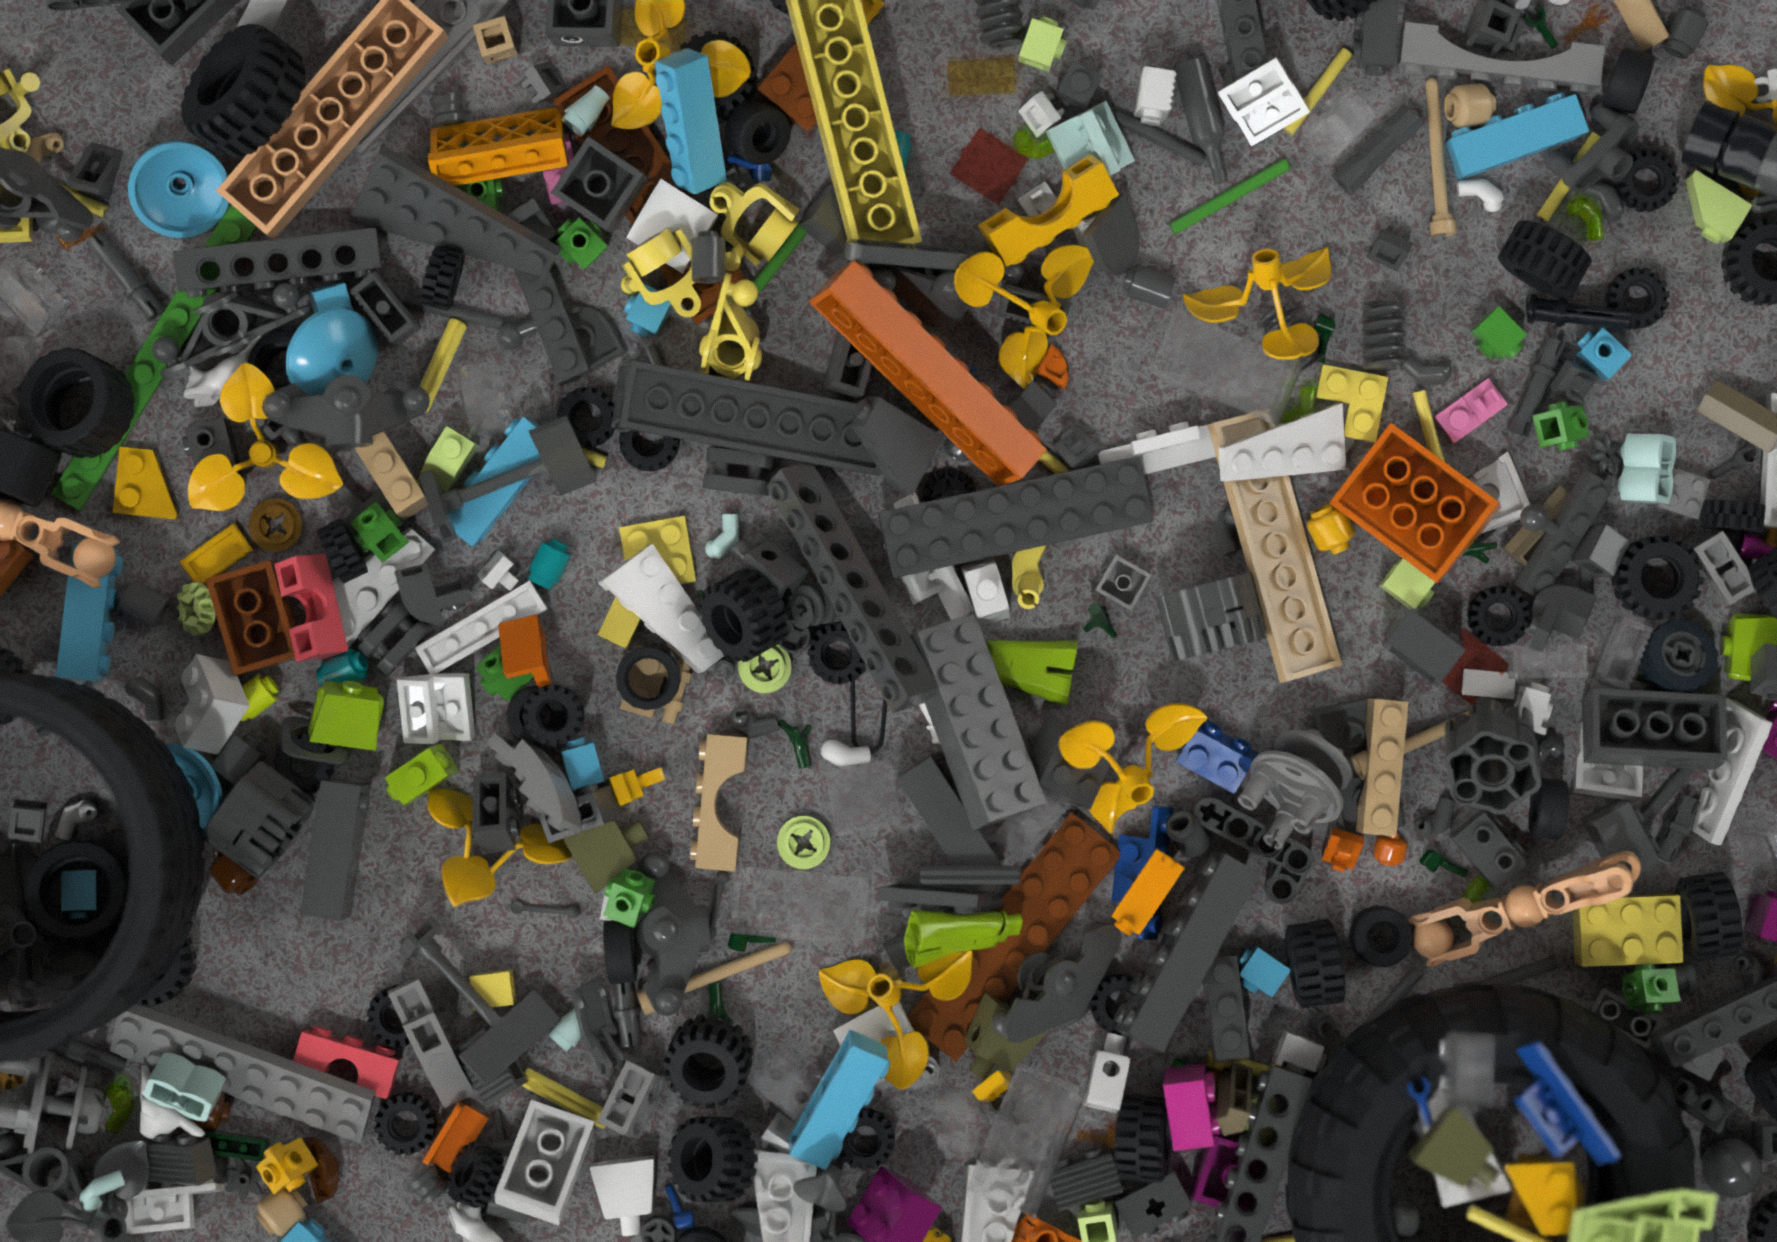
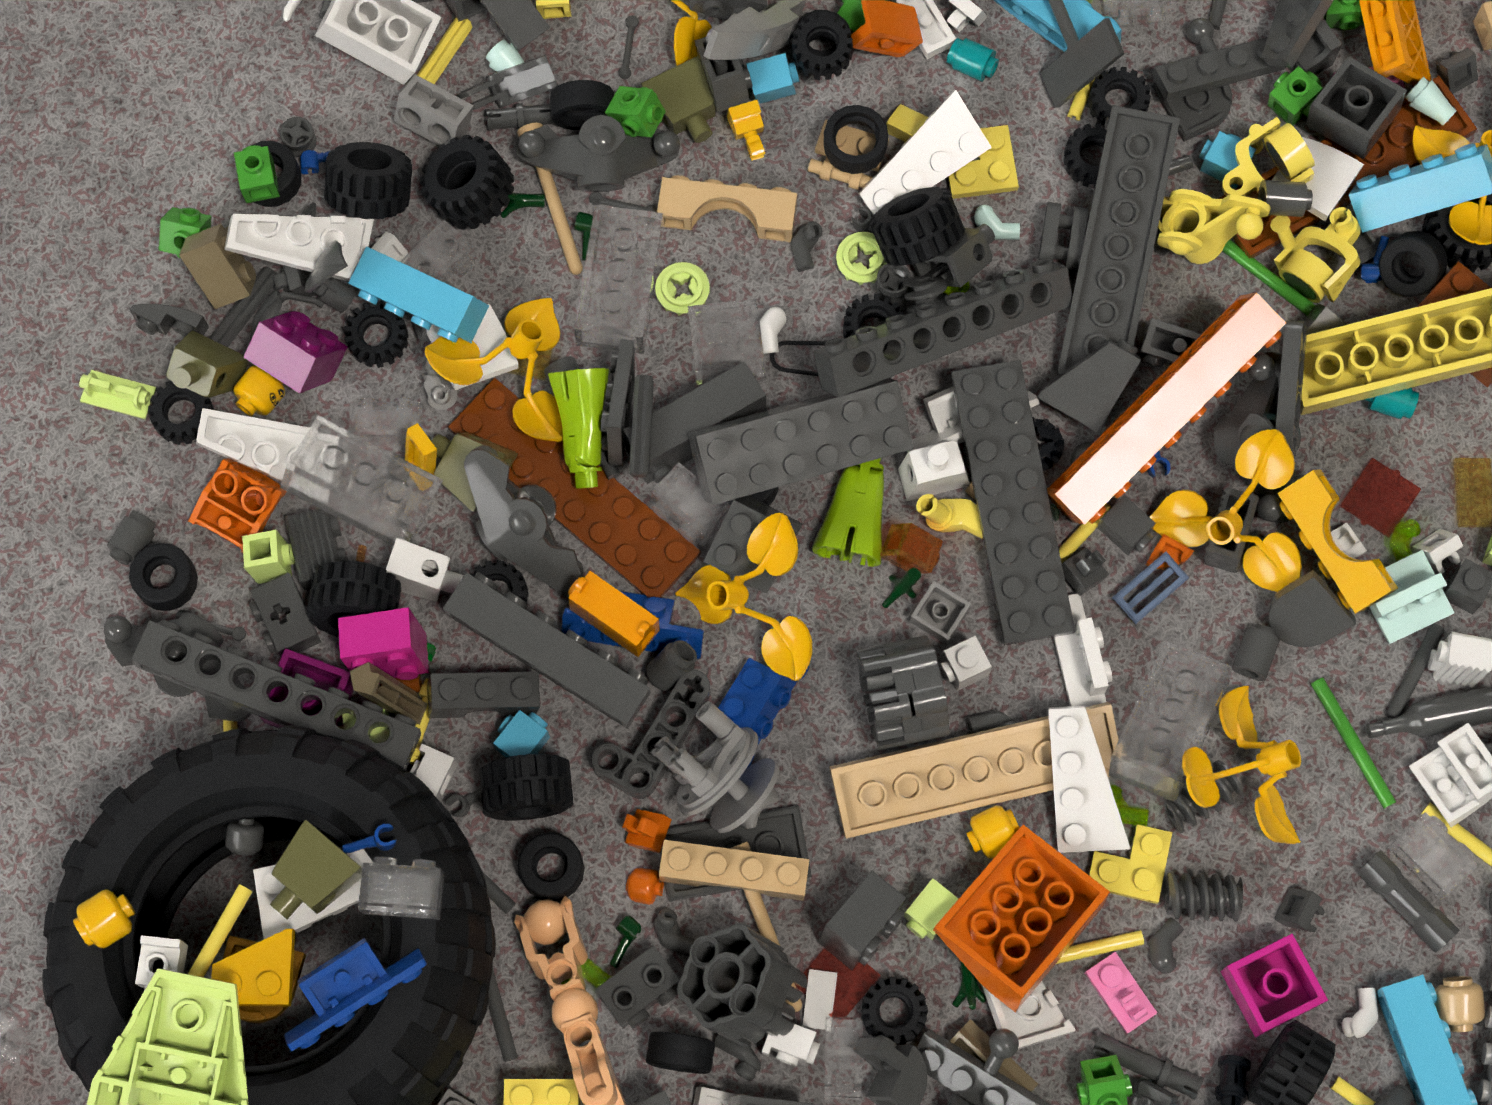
camera: 90 degrees right, 15 degrees down
(625, 1190) = (344, 107): white torso -> none
(799, 743) = (783, 289): dark green bar -> none
(1064, 611) = (911, 548): none -> clear orange brick
(1071, 364) = (1127, 607): none -> sand blue tile
(1174, 559) = (965, 663): none -> white brick
(1325, 326) = (1215, 836): dark green hand -> none
(1442, 220) = (1330, 969): tan piece -> none
(1464, 273) = (1274, 985): none -> dark pink brick
(1499, 335) = (1204, 1024): bright green brick -> none

